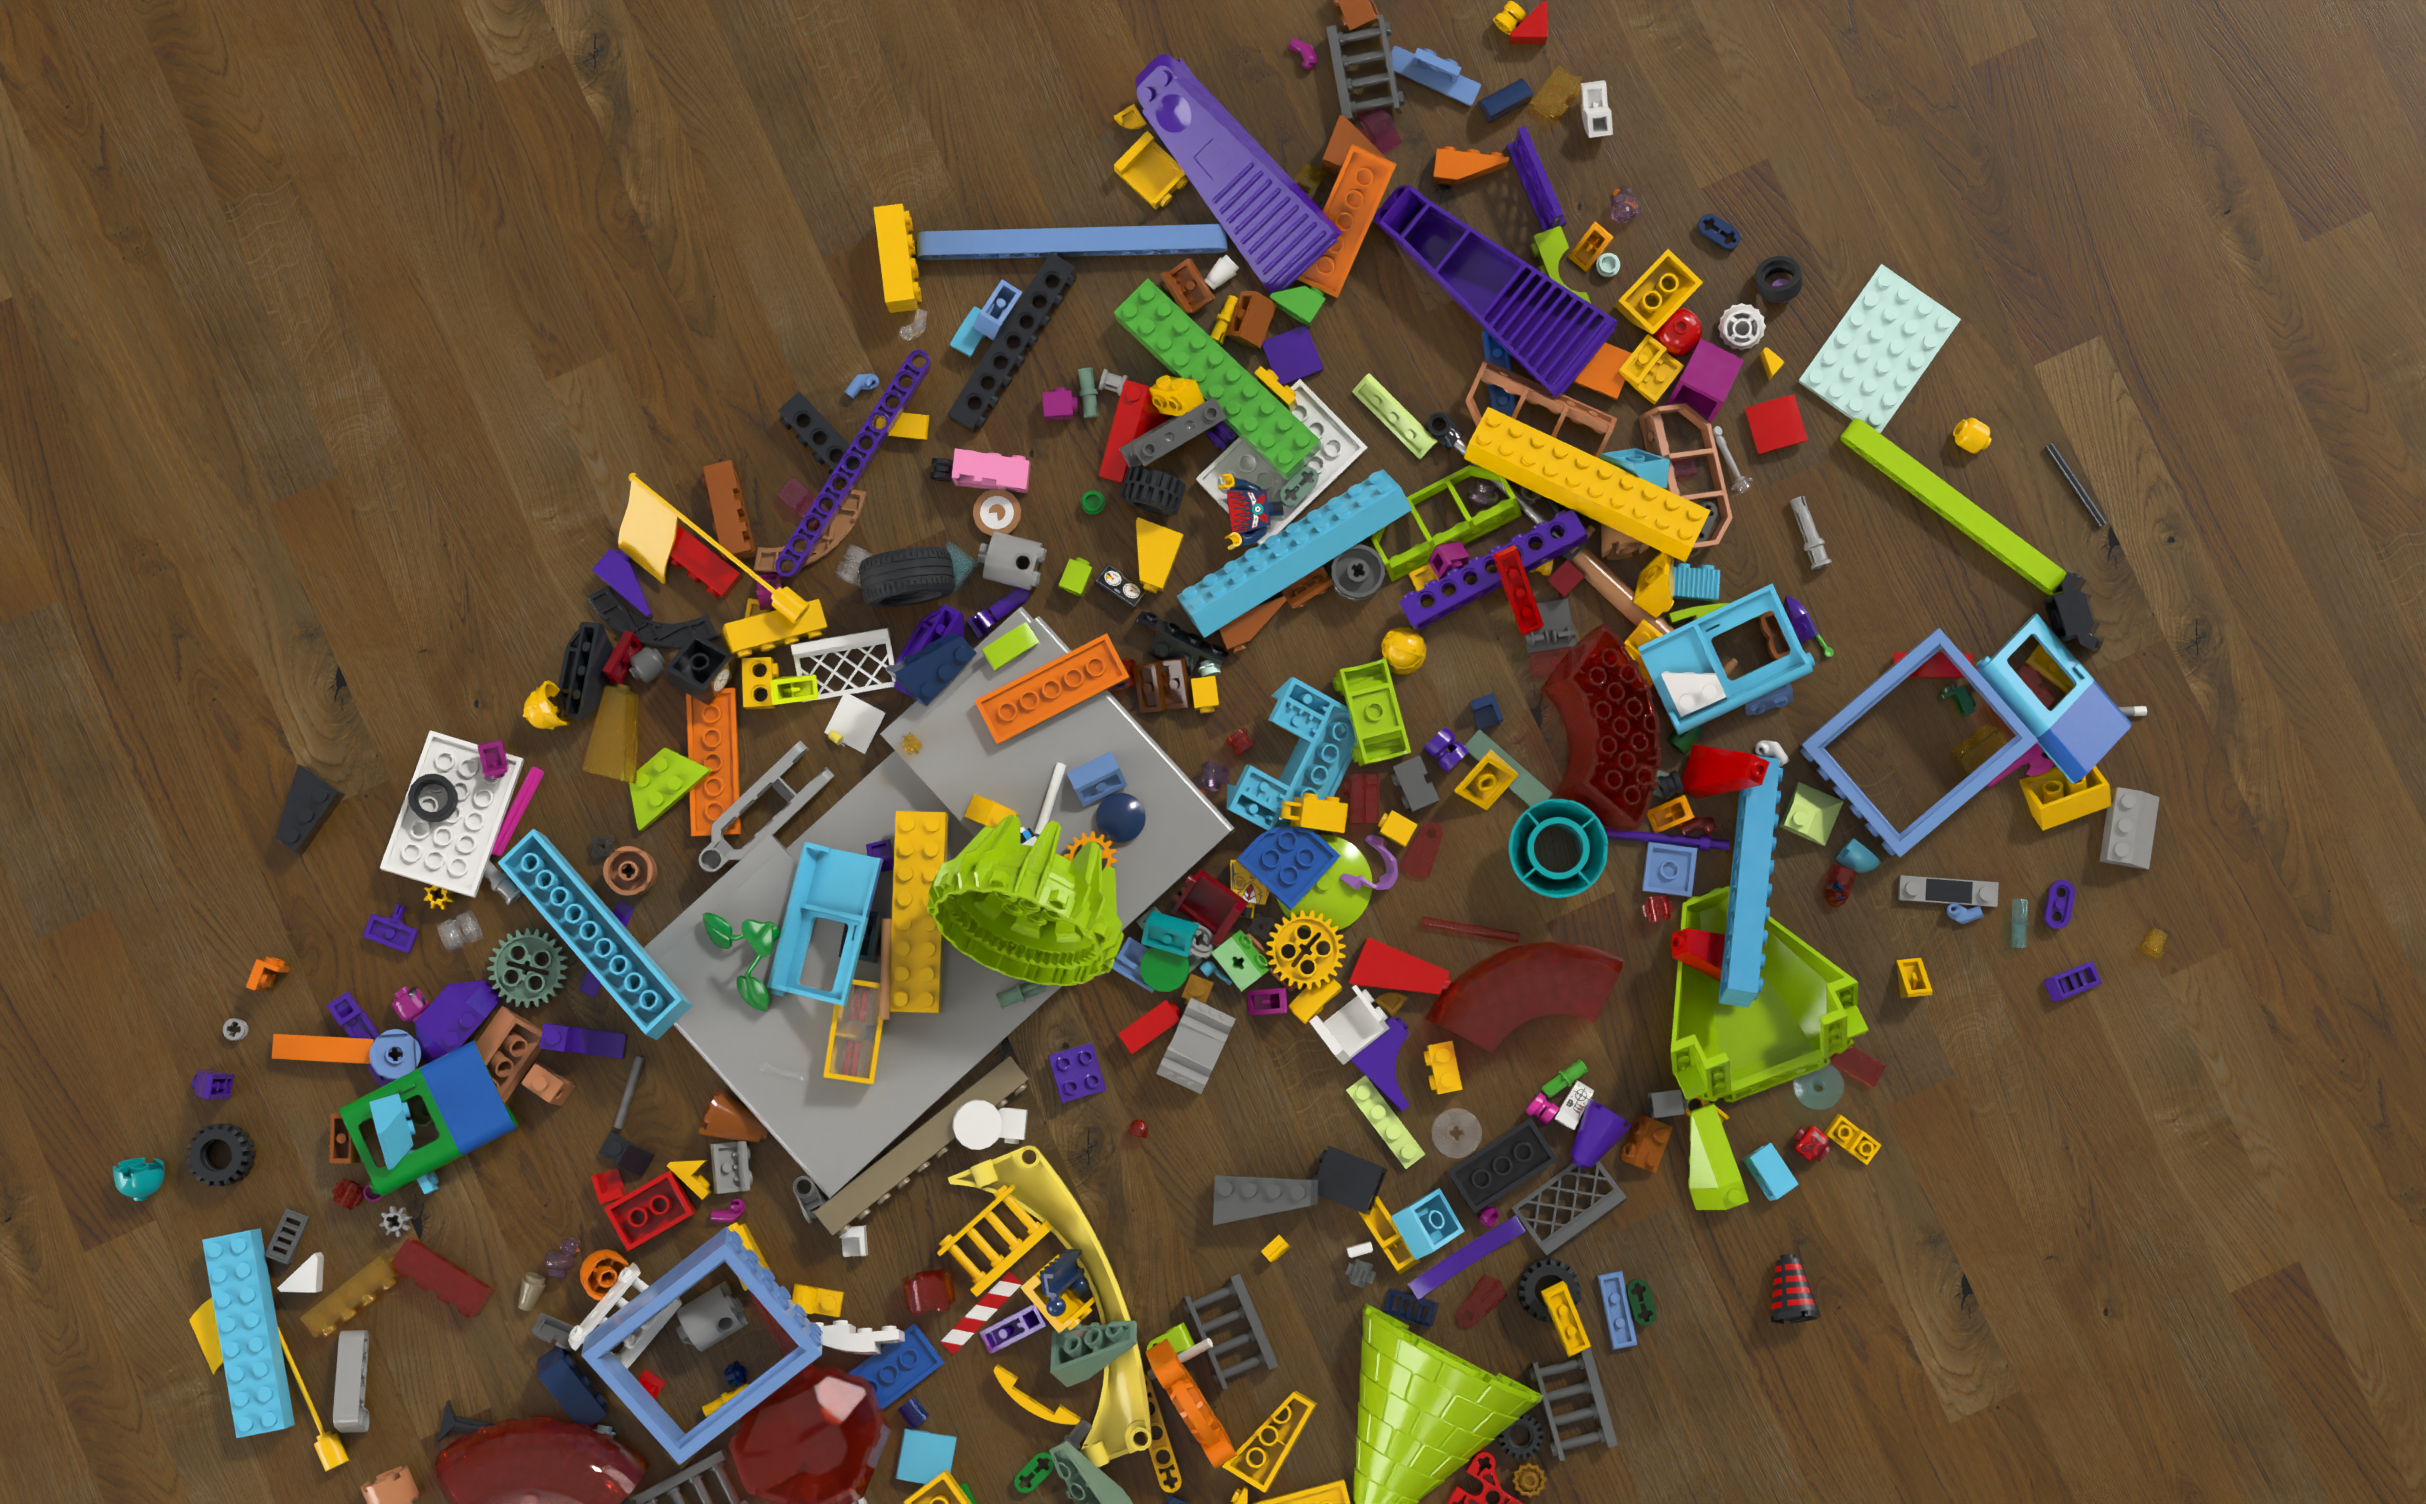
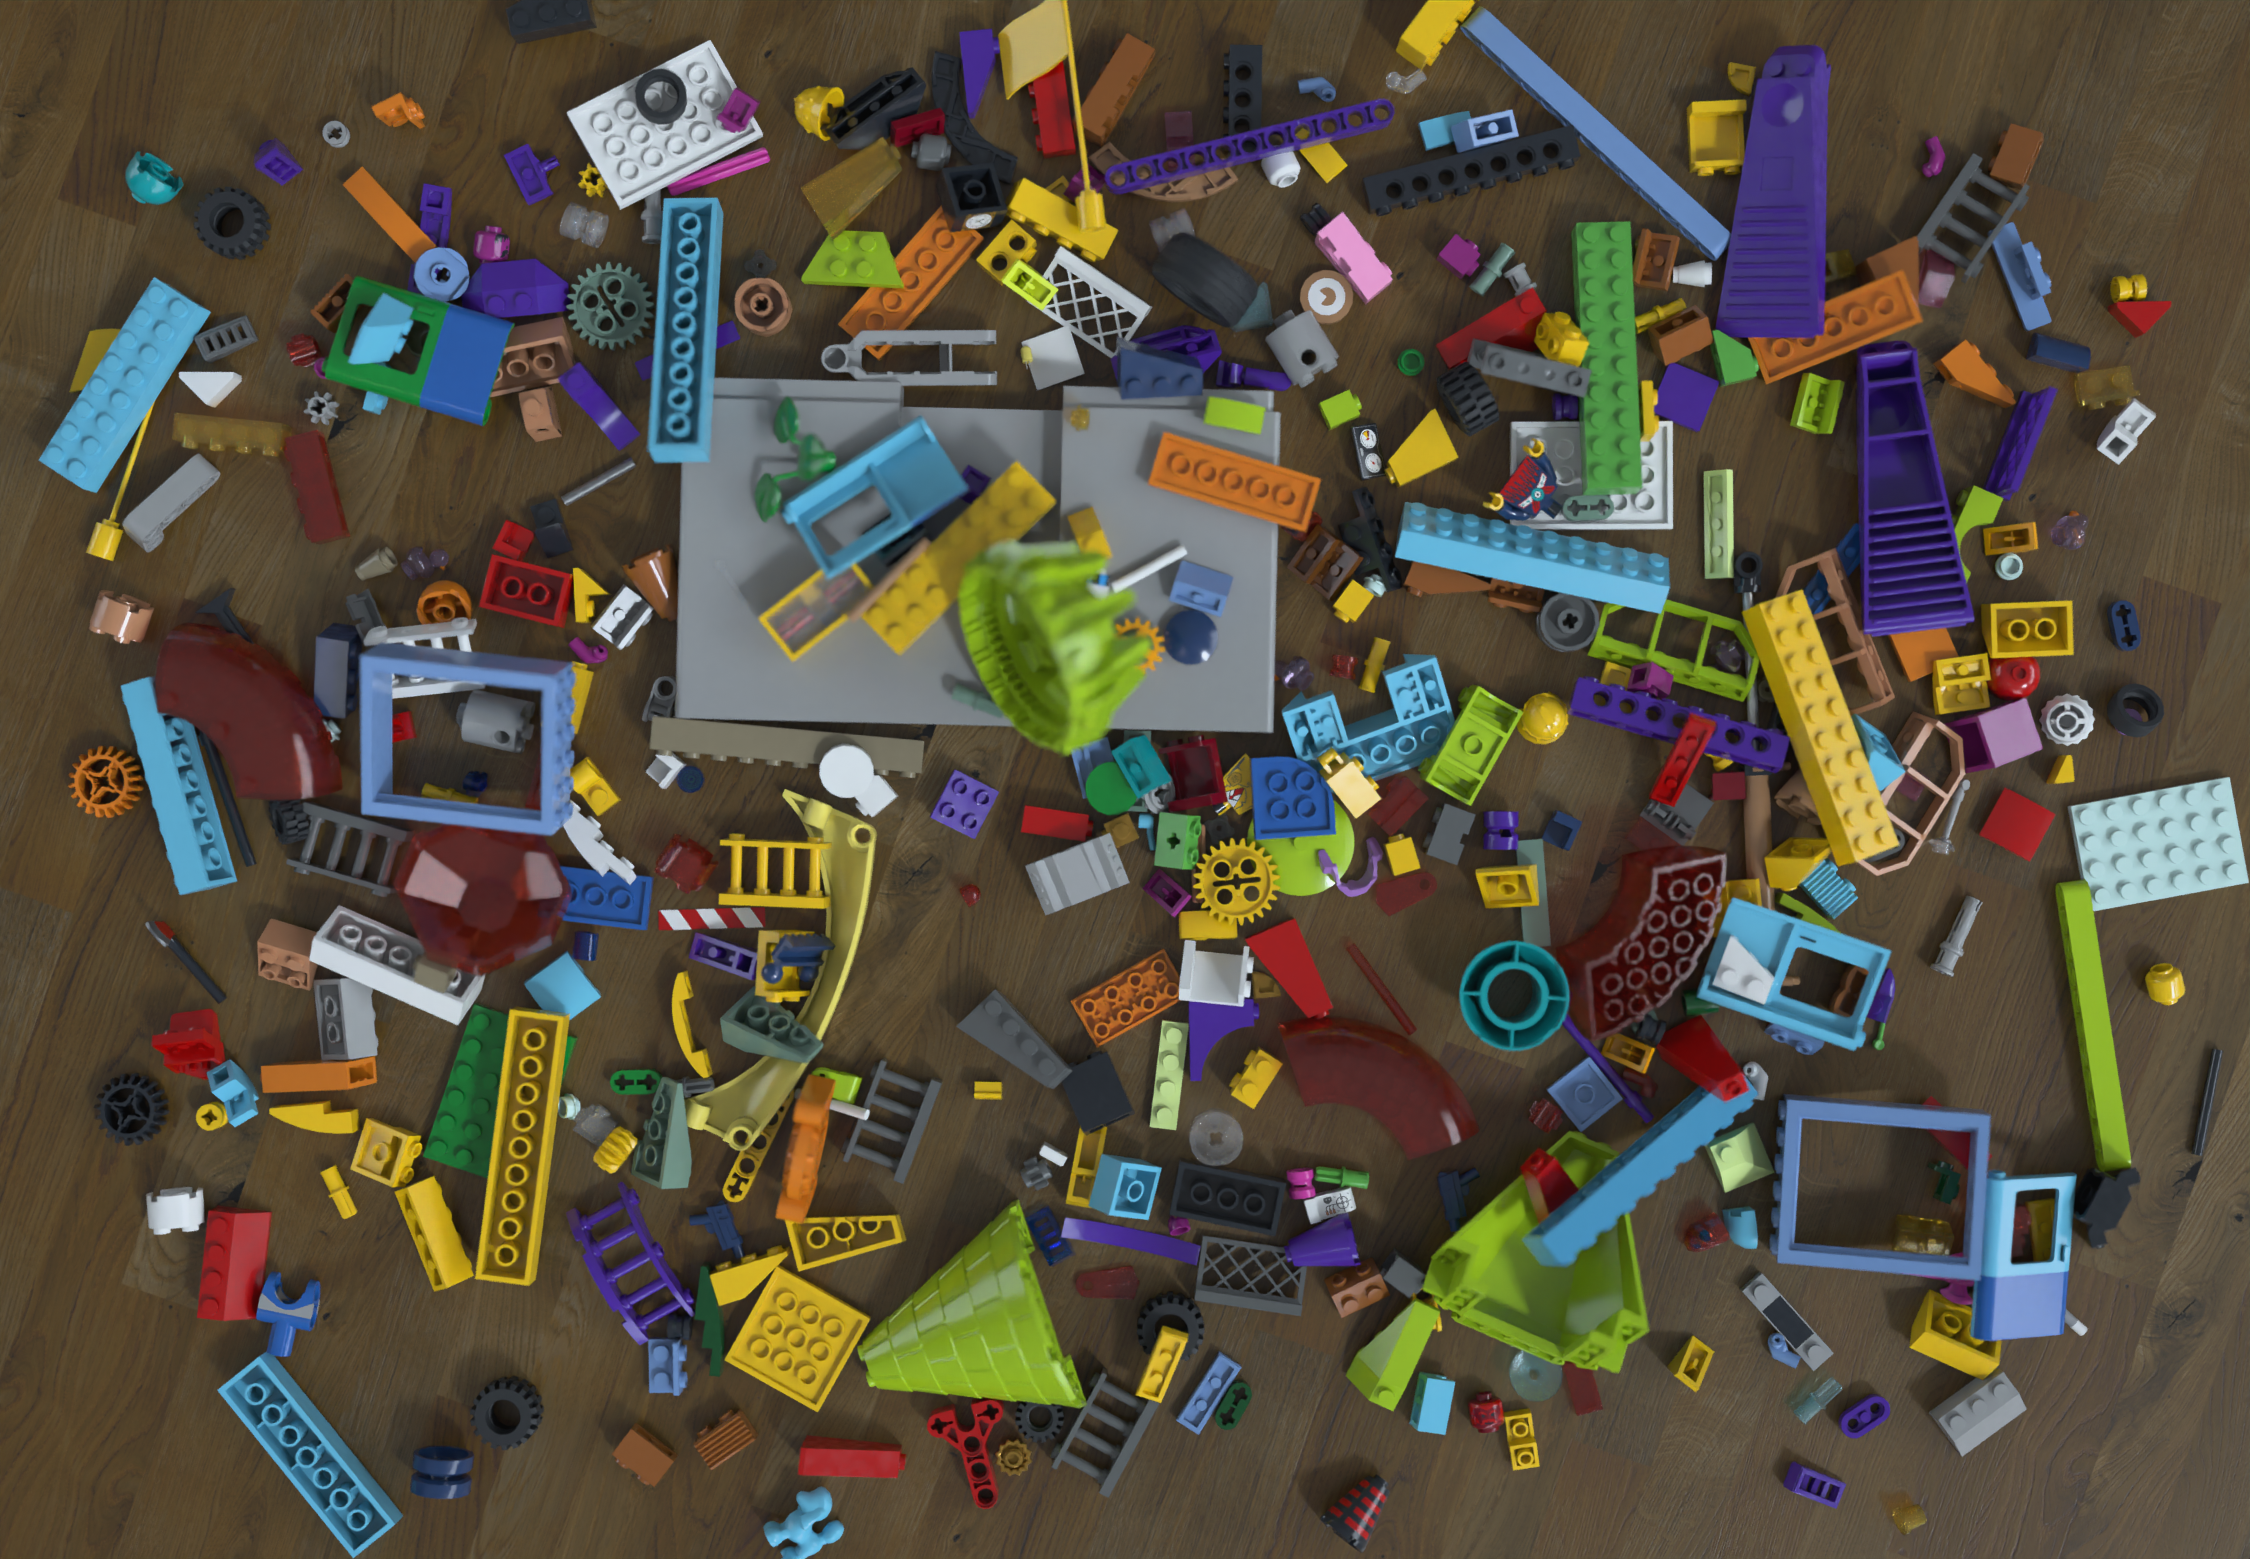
camera: 40 degrees right, 5 degrees up
(878, 1232) = (690, 779): none -> clear blue tile
(888, 458) = (1281, 169): none -> white head
(1259, 721) = (1374, 664): none -> yellow pin
(1309, 1096) = (1129, 998): none -> orange tile
(1382, 279) = (1817, 404): none -> lime bracket
(1645, 1017) = (1452, 1190): none -> dark blue piece

